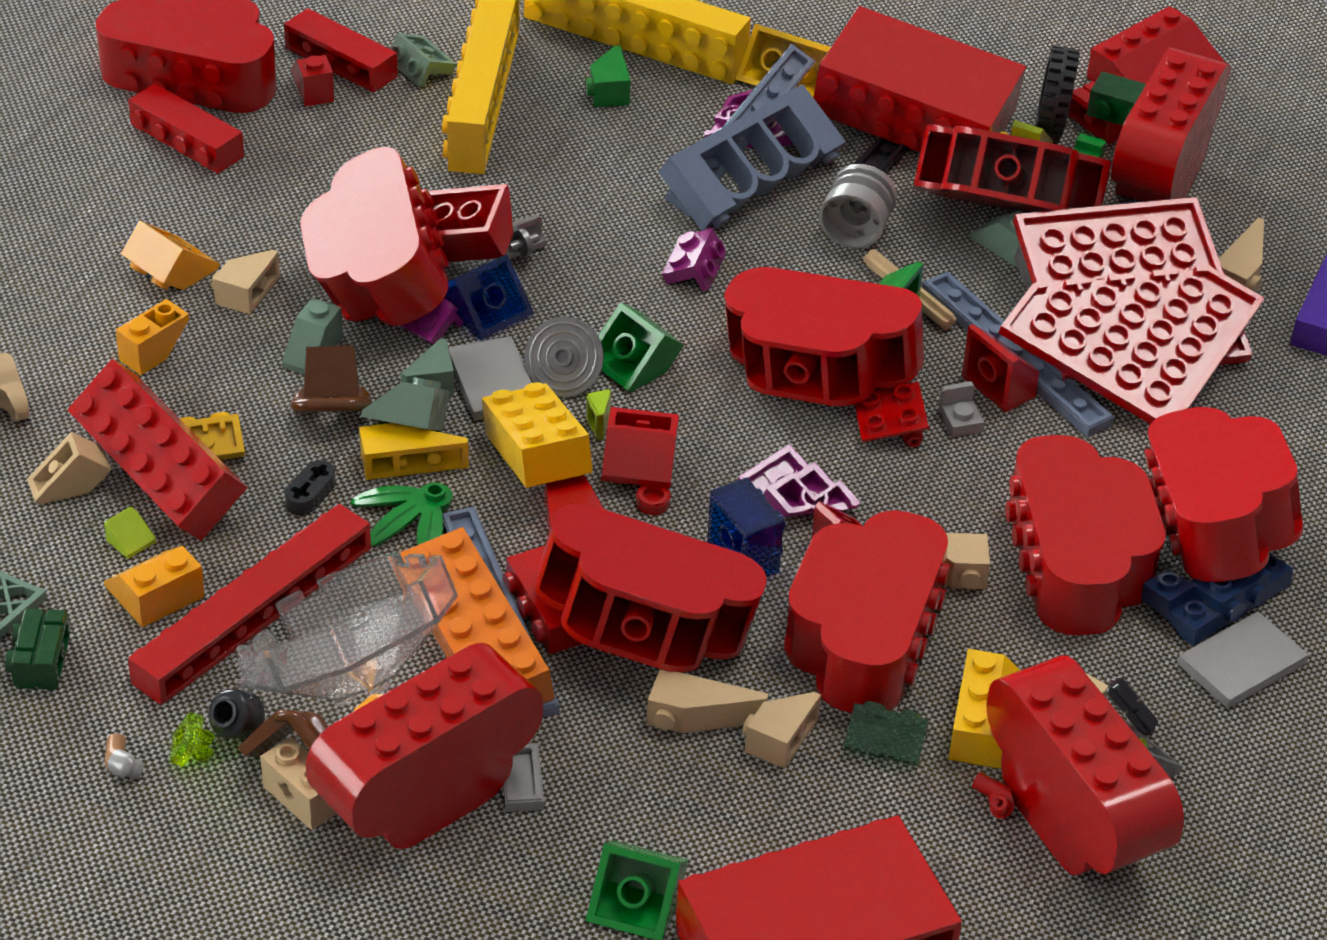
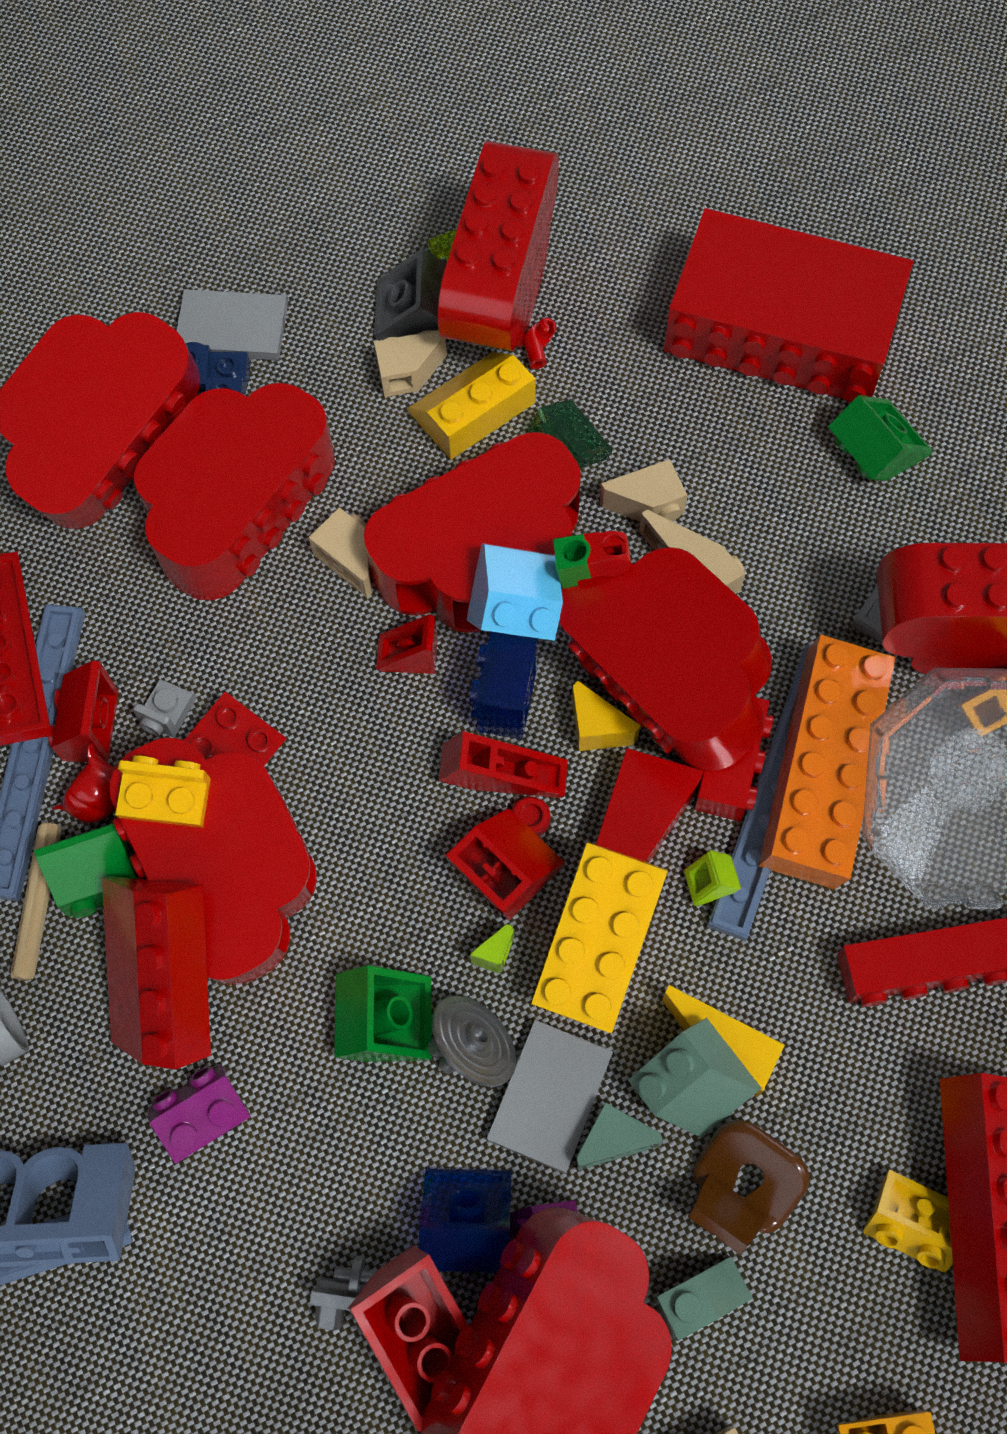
camera: 135 degrees left, 25 degrees up
(316, 490) = (844, 1062): black beam -> none
(426, 502) = (785, 958): green plant -> none
(493, 527) = (711, 877): none -> lime slope
(689, 505) = (501, 767): none -> red slope
(755, 578) = (591, 556): none -> leg
(781, 248) = (157, 970): none -> red slope
(787, 540) = (516, 593): none -> medium azure slope
(797, 487) = (398, 732): slope -> none
(874, 300) = (163, 792): none -> yellow bracket
(940, 337) = (89, 794): none -> red hair
(1127, 701) = (369, 326): black piece -> none

